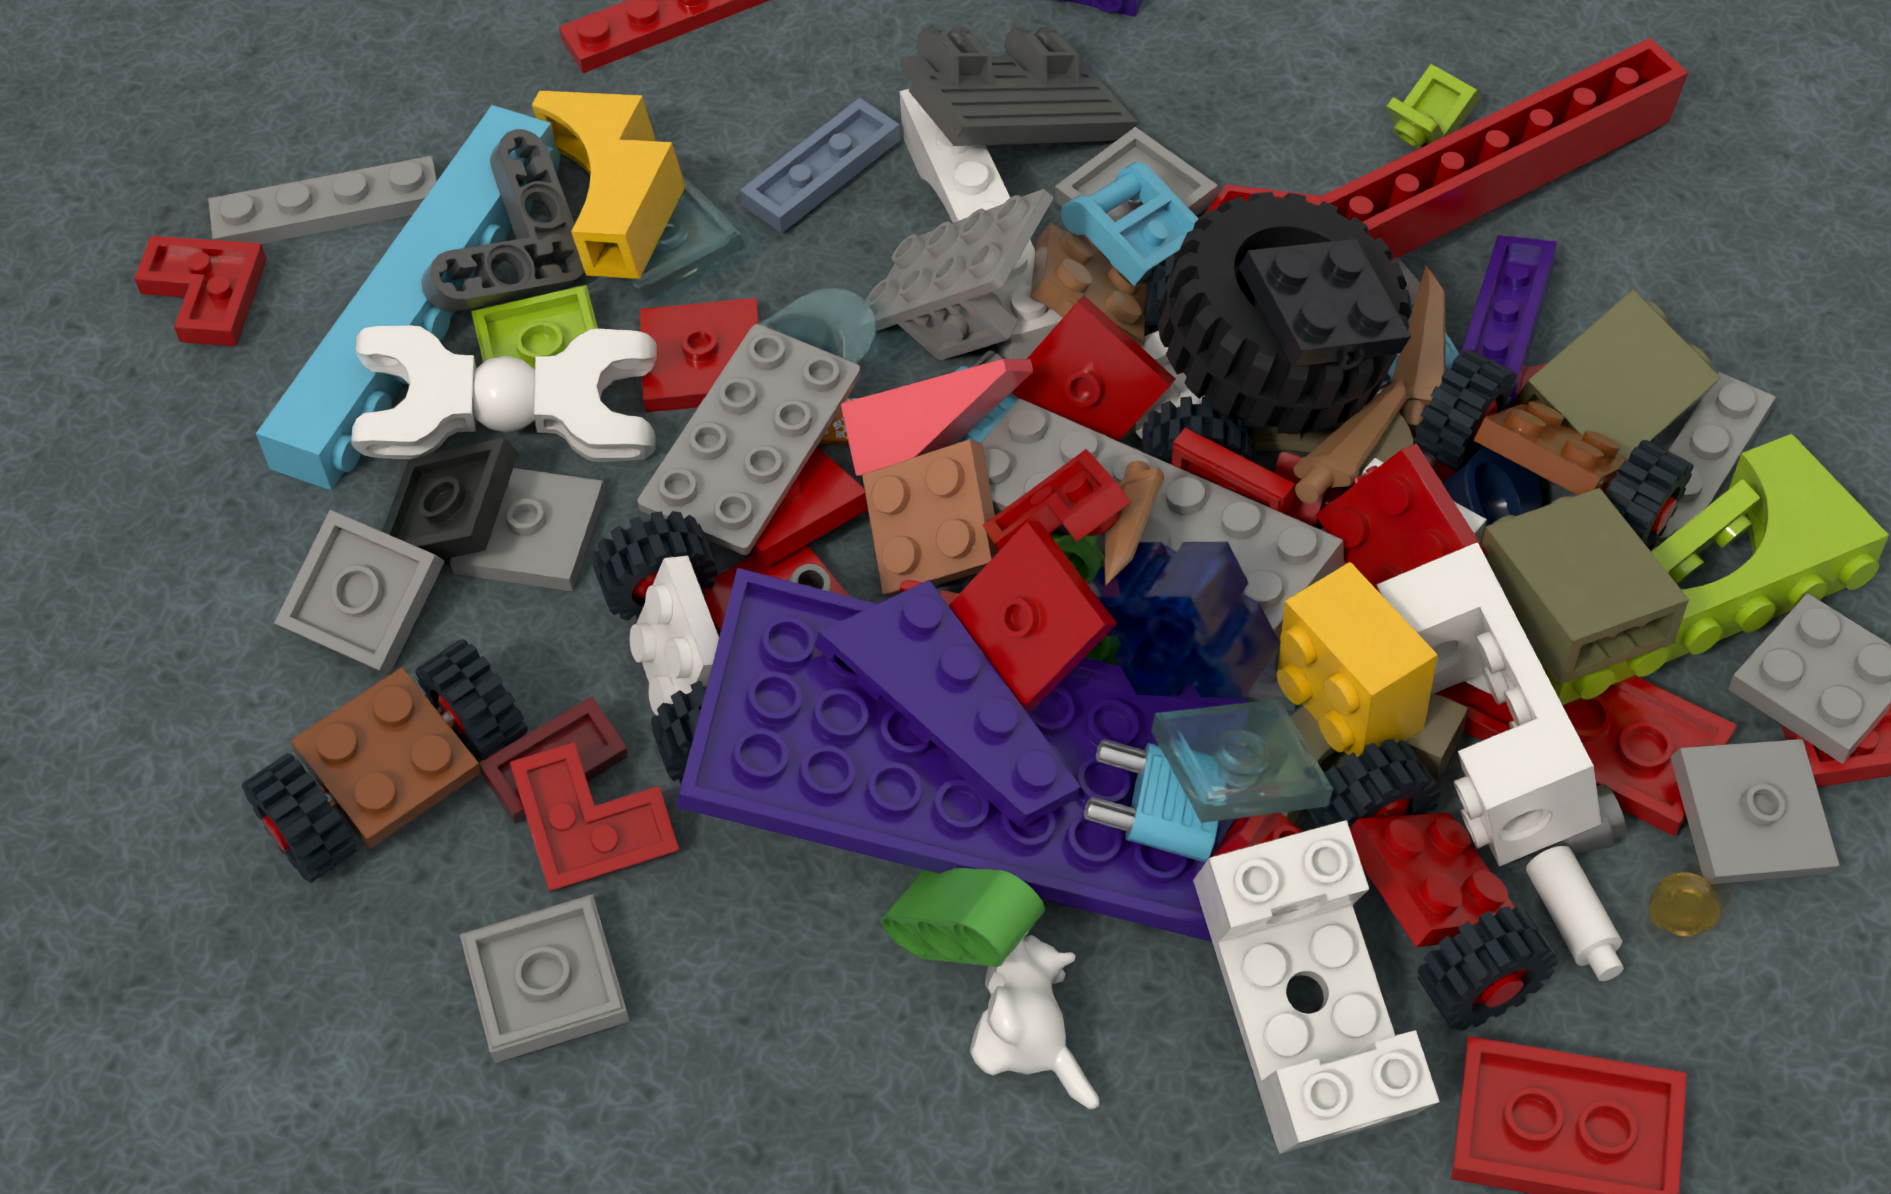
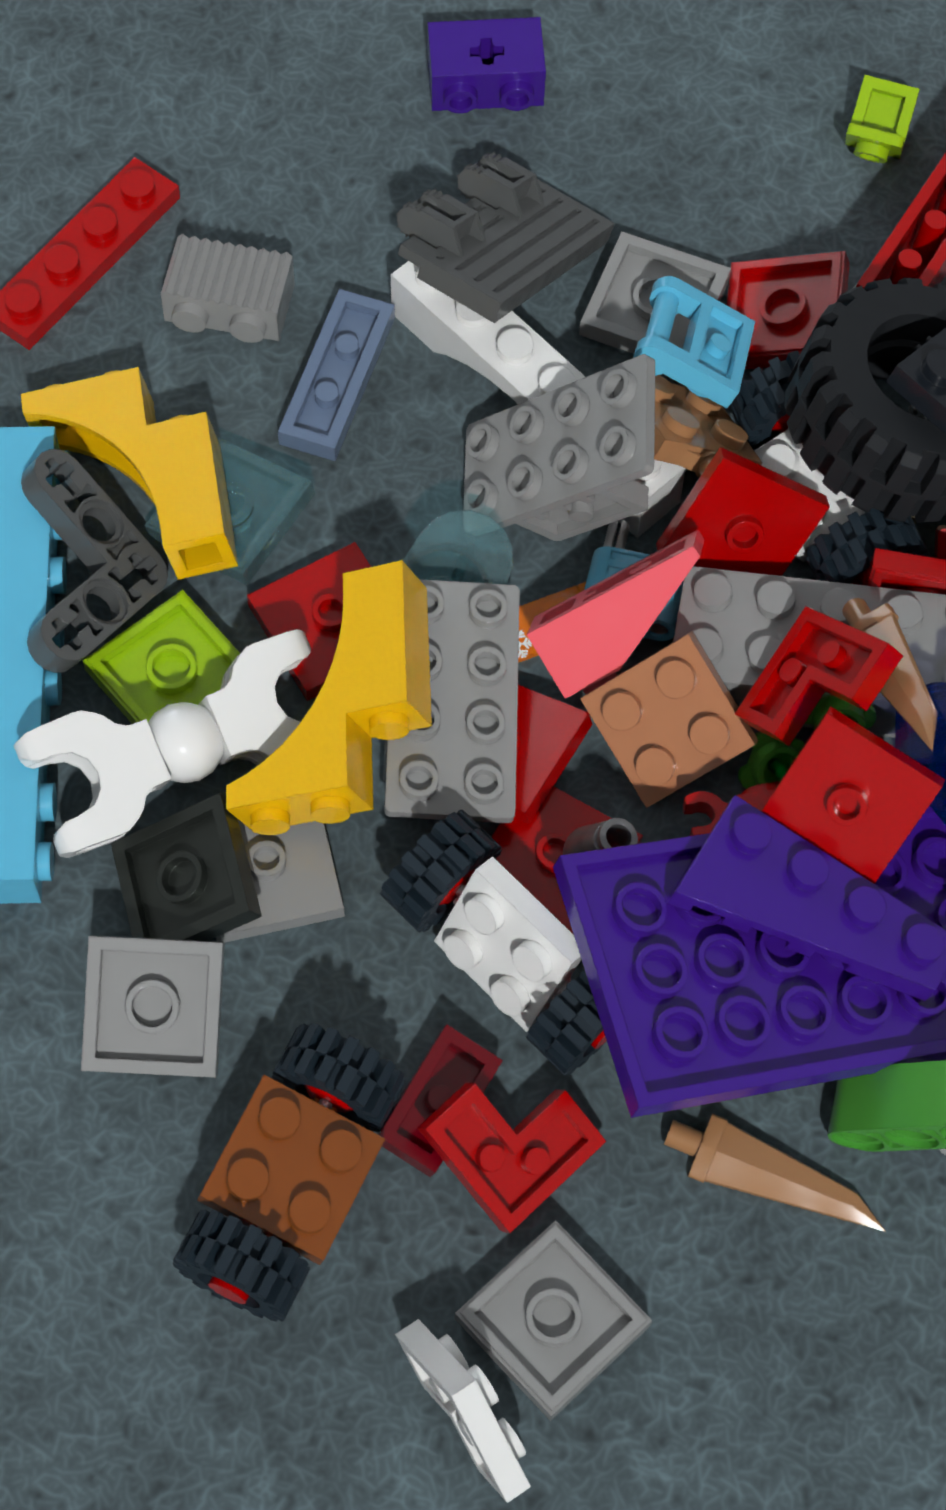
camera: 30 degrees left, 10 degrees up
(409, 985) = (467, 1400): none -> white plate
(668, 397) = (371, 691): none -> yellow arch
(767, 71) = (228, 289): none -> light grey brick
(798, 922) = (749, 1165): none -> medium nougat bar

